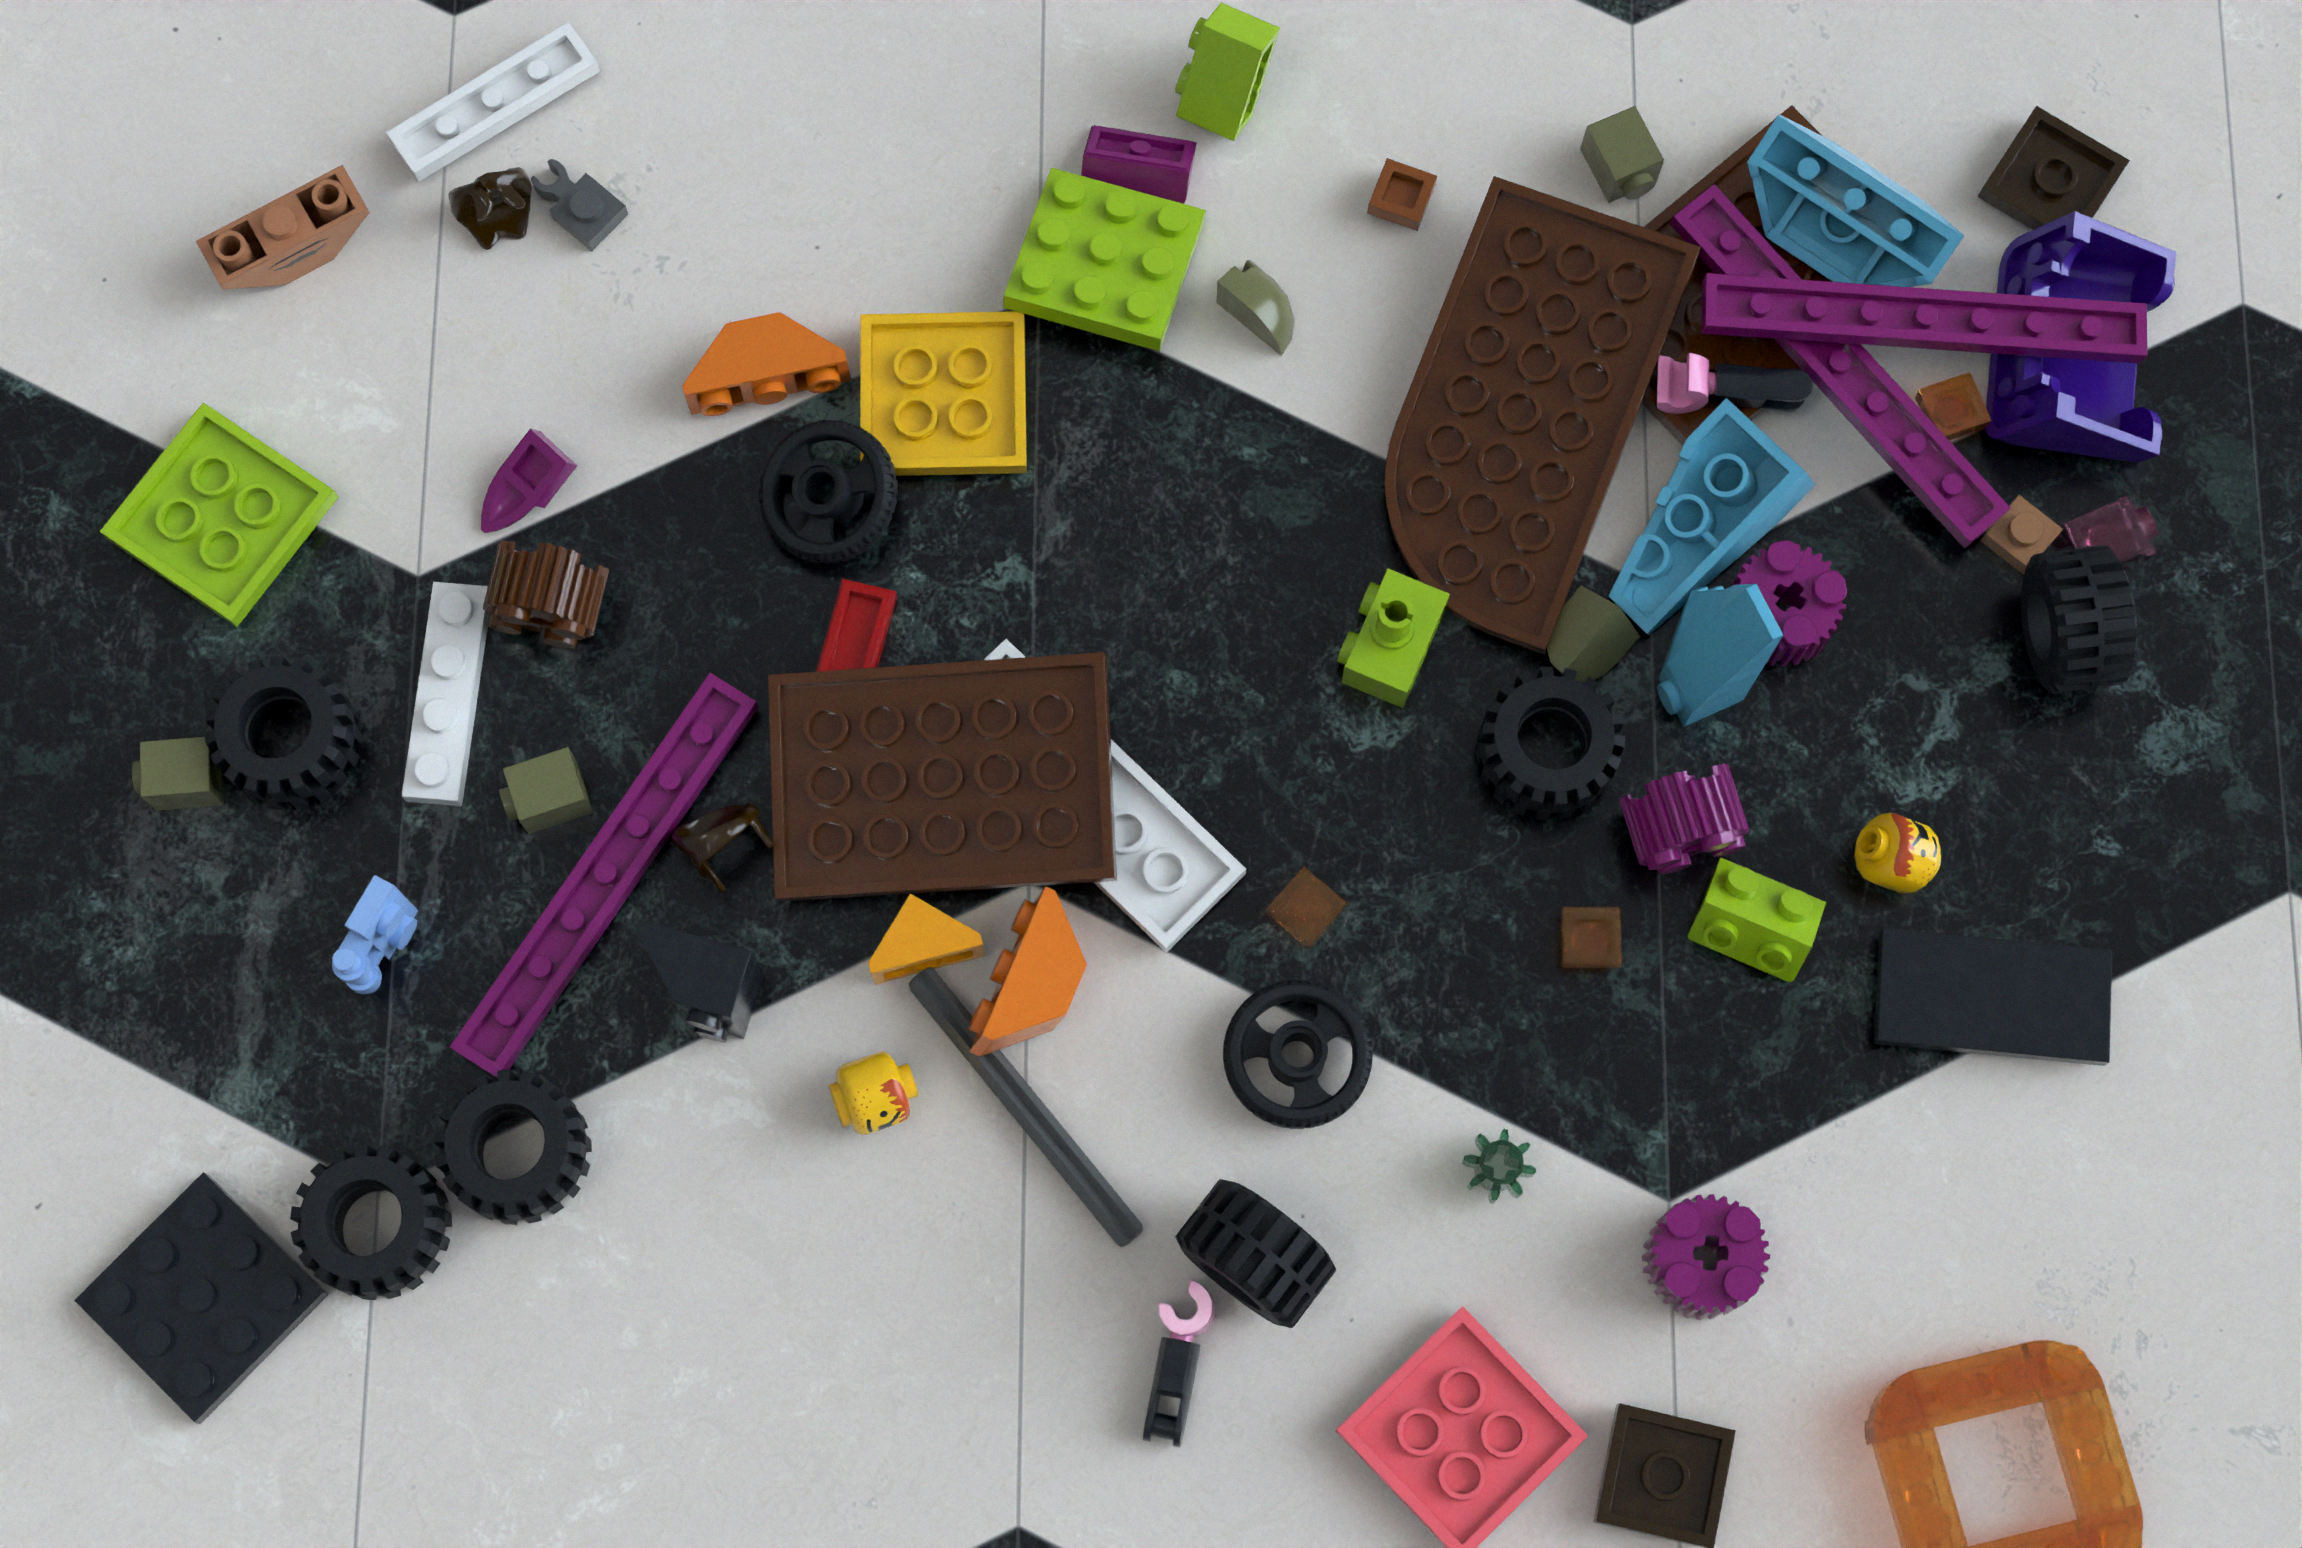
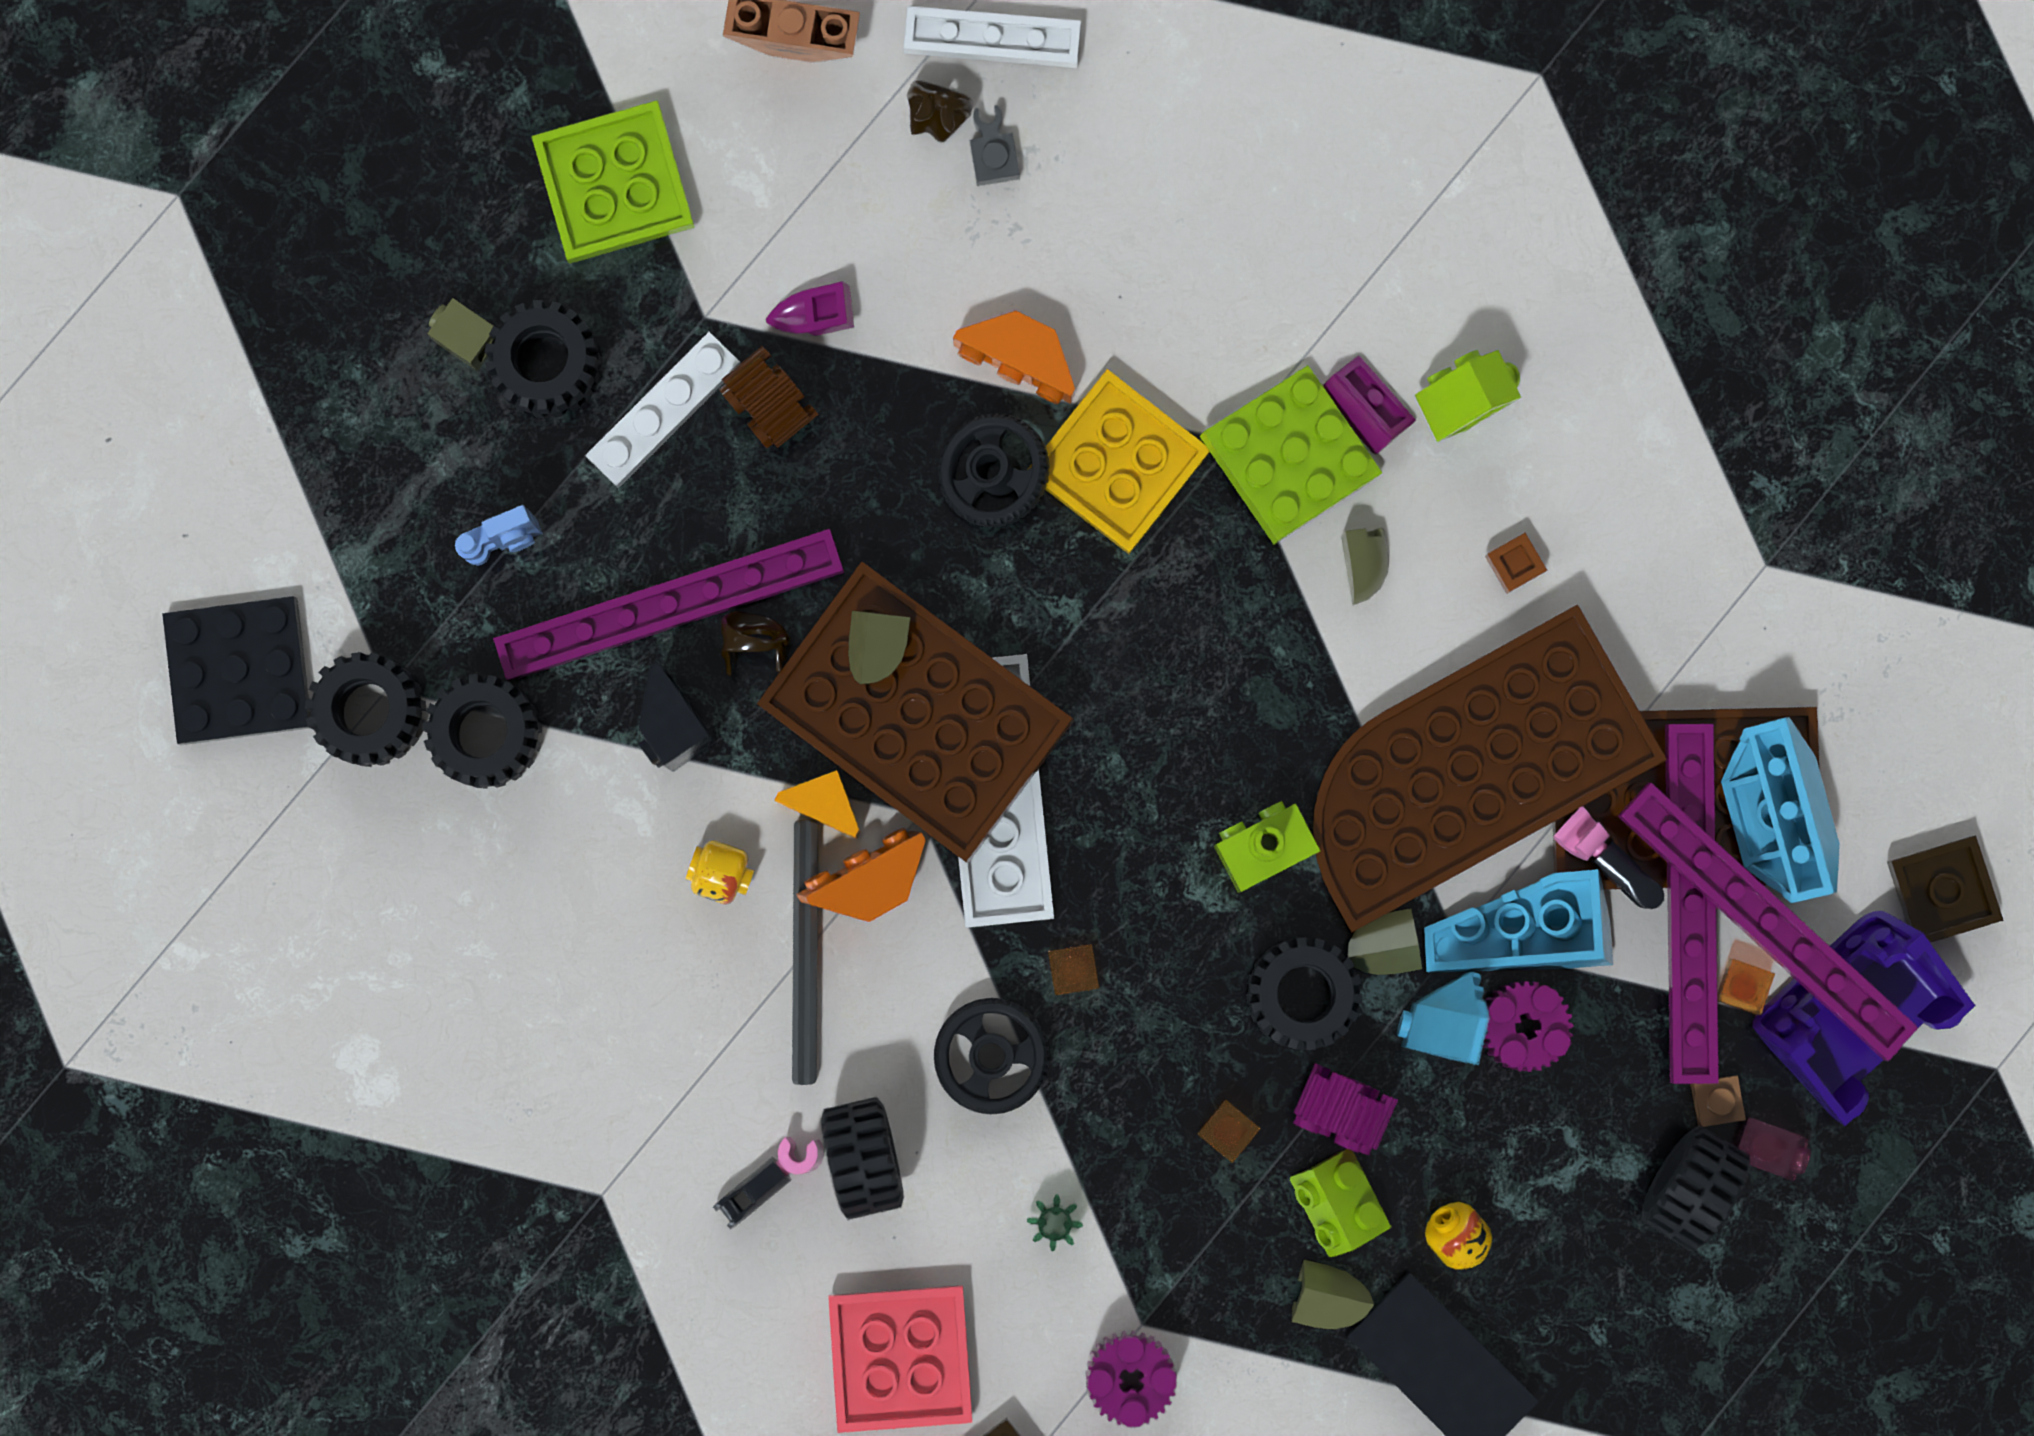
camera: 40 degrees right, 10 degrees up
(545, 791) = (672, 523): olive brick -> none
(848, 736) = (876, 645): none -> olive brick
(857, 627) = (940, 573): red tile -> none
(1622, 155) = (1678, 652): olive brick -> none
(1828, 1019) = (1330, 1297): none -> olive brick

